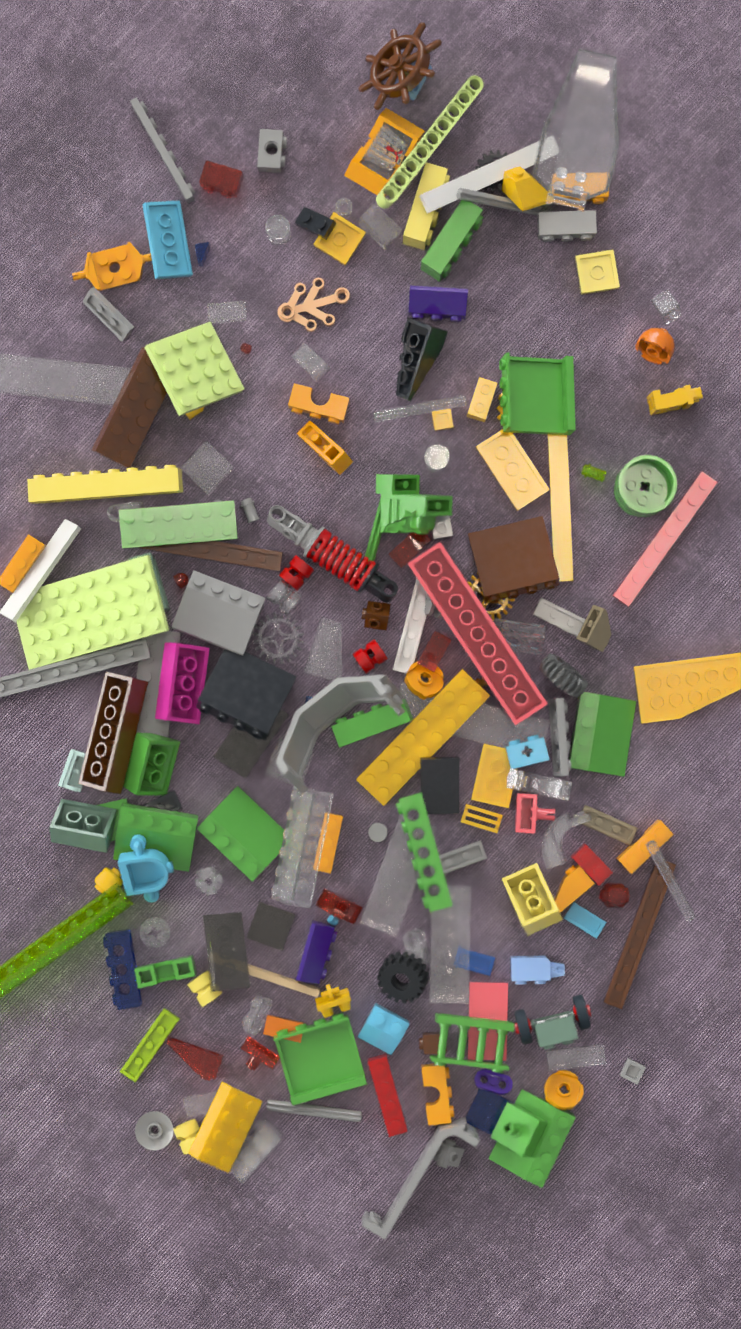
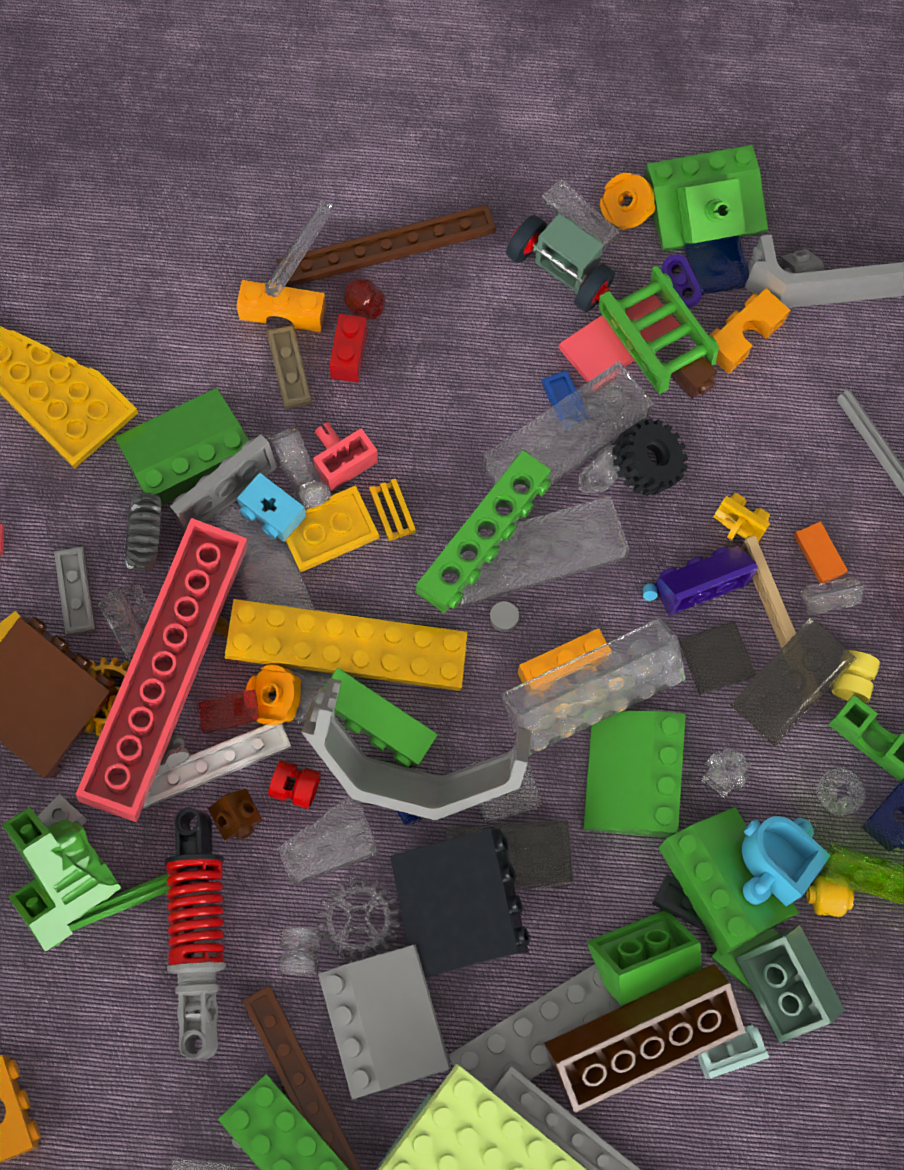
camera: 140 degrees left, 15 degrees down
(181, 579) = (377, 1109): clear red hinge -> none
(181, 682) = (511, 997): dark pink brick -> none
(249, 510) = (216, 1089): light grey pin -> none
(258, 1054) = (874, 557): clear red tile -> none
(299, 566) = (243, 960): red wheel -> none
(323, 1061) = (821, 478): bright green panel -> none
(325, 447) = (58, 1052): light orange slope -> none
(339, 906) = (629, 595): clear red slope -> none
(383, 1029) = (724, 439): medium azure slope -> none
(387, 1095) = (794, 380): red brick -> none
(409, 548) = (118, 841): clear red slope -> none
(440, 784) = (386, 582): black tile -> none
(461, 857) = (452, 496): light grey tile -> none
(532, 899) = (441, 377): light yellow brick -> none
(534, 969) = (520, 327): light blue hinge -> none
(552, 841) = (343, 411): clear arch -> none
(572, 887) = (396, 351): light orange slope -> none
(585, 920) = (419, 314): medium azure tile -> none
(595, 629) = (56, 538): dark tan slope -> none
(632, 1071) = (545, 149): light grey plate -> none

